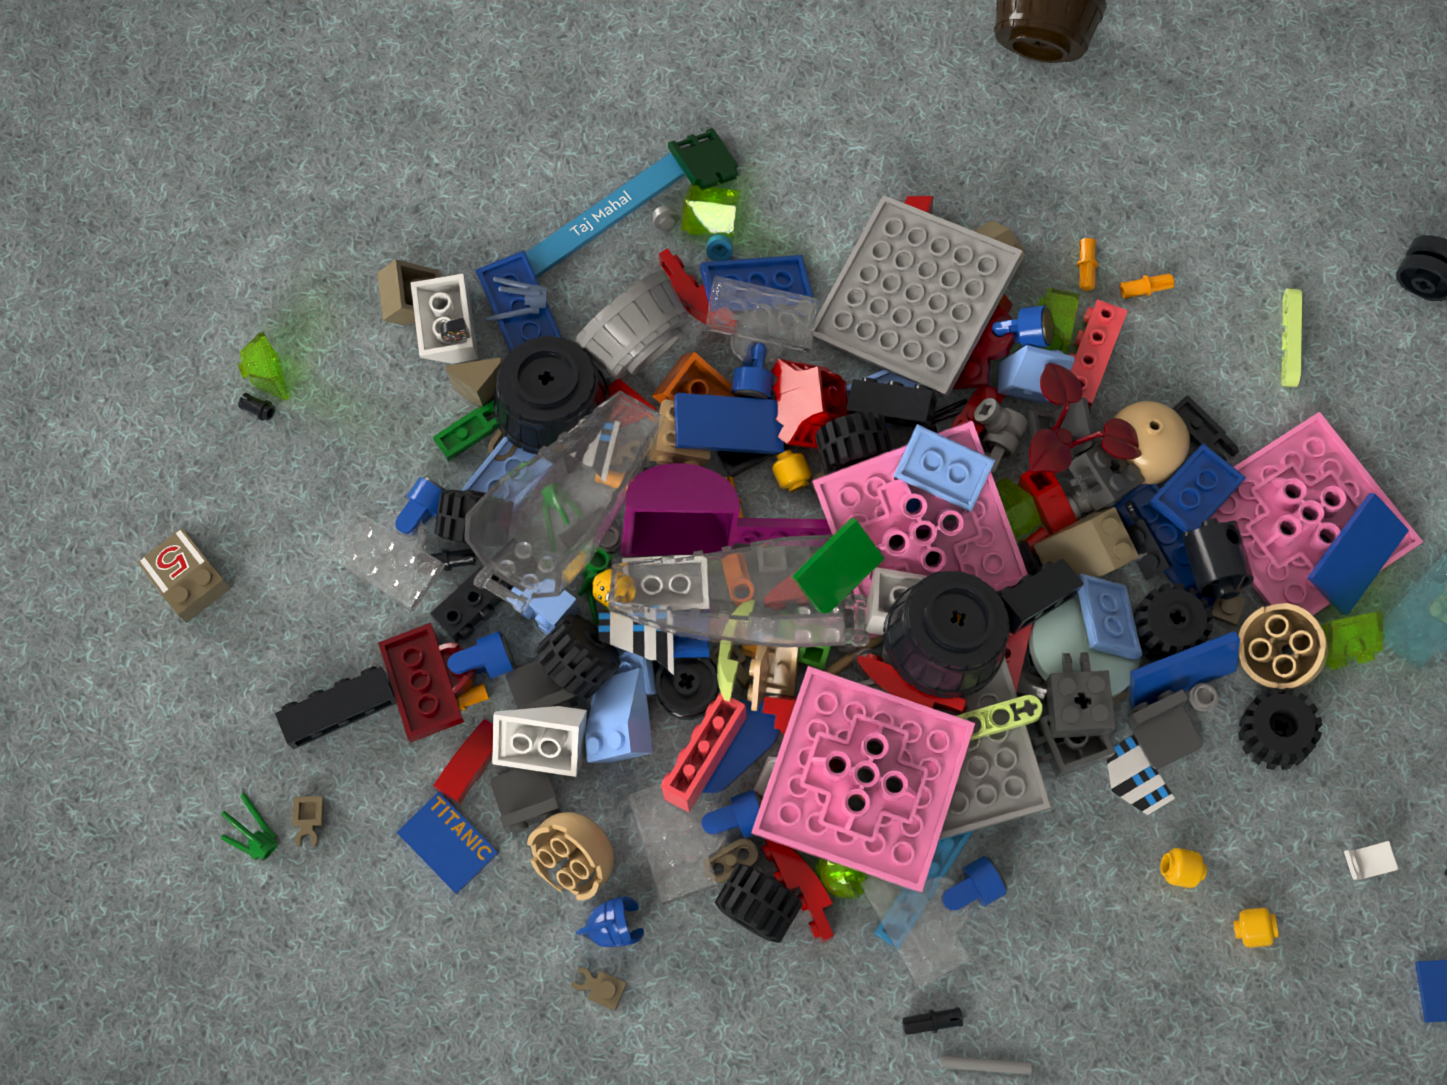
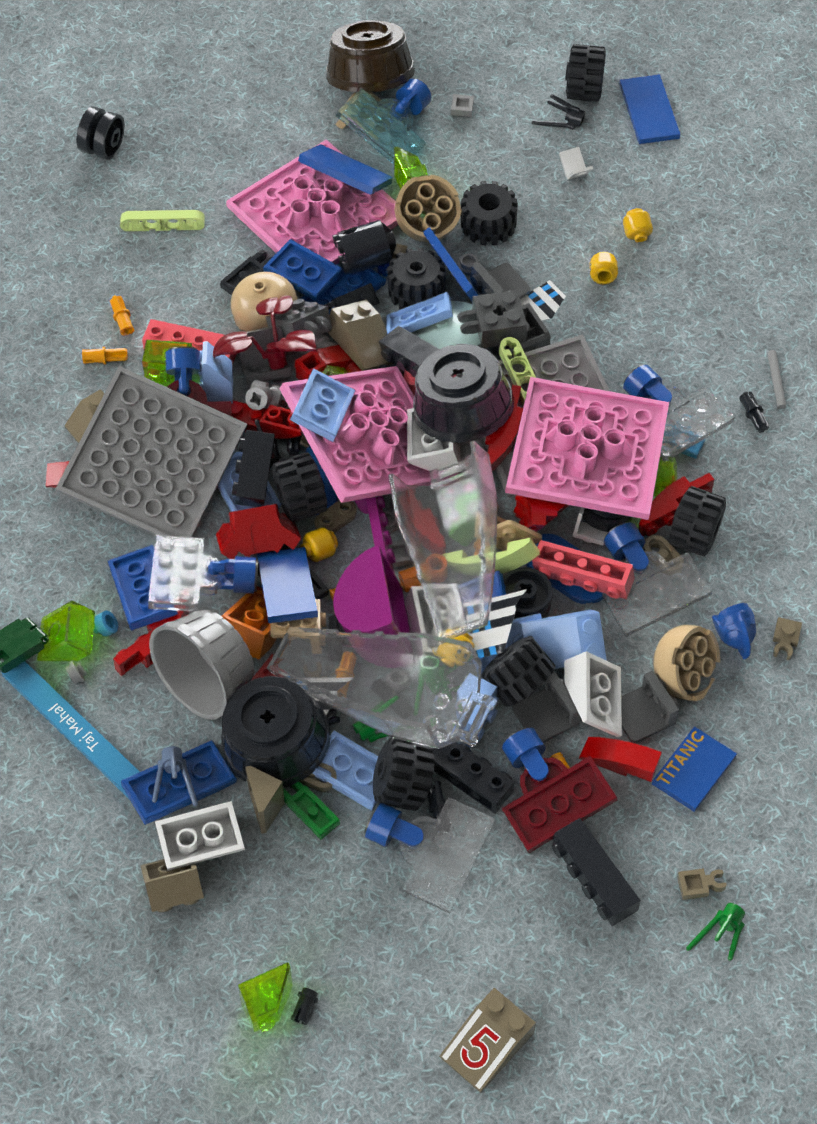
camera: 100 degrees left, 15 degrees down
(454, 330) = (220, 810): black tile -> none
(838, 567) = (415, 477): green tile -> none

